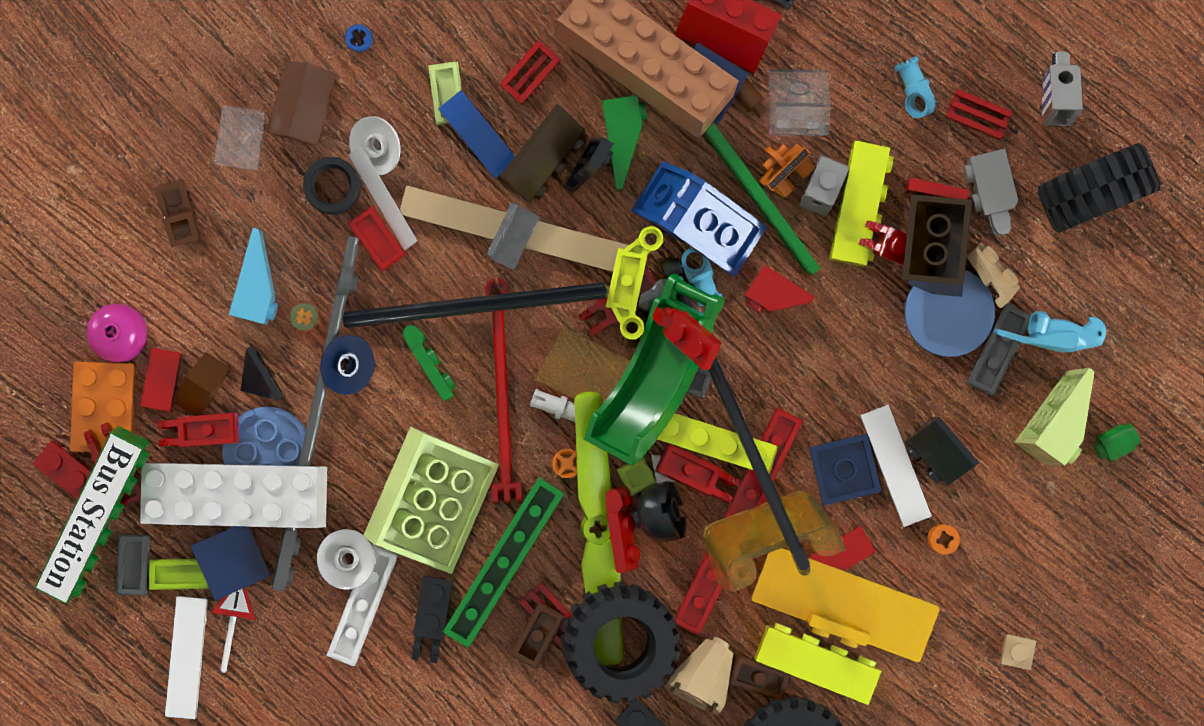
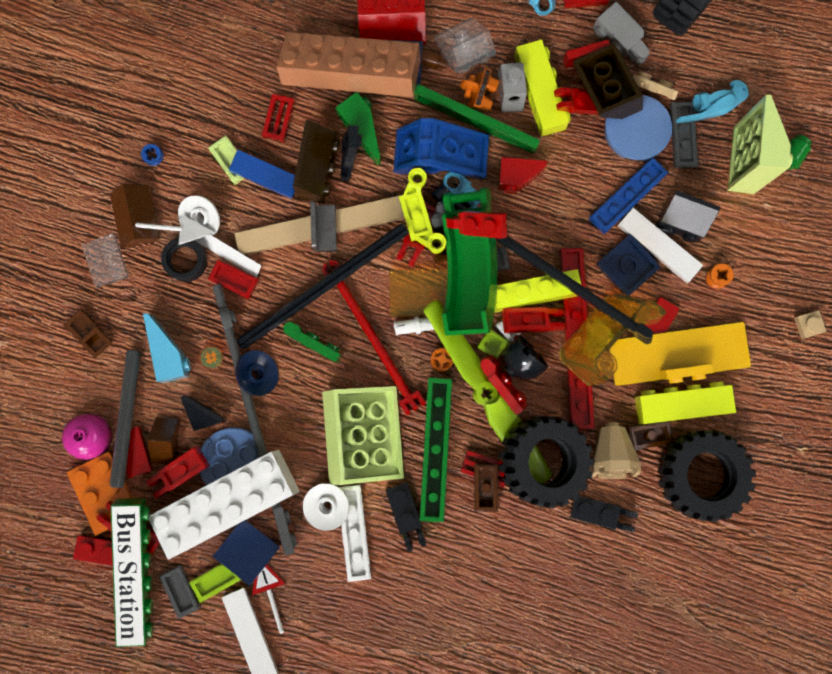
camera: 30 degrees left, 5 degrees down
(170, 336) = (124, 419): none -> dark grey axle
(355, 156) = (188, 230): none -> white piece
(892, 387) = (628, 195): none -> blue tile

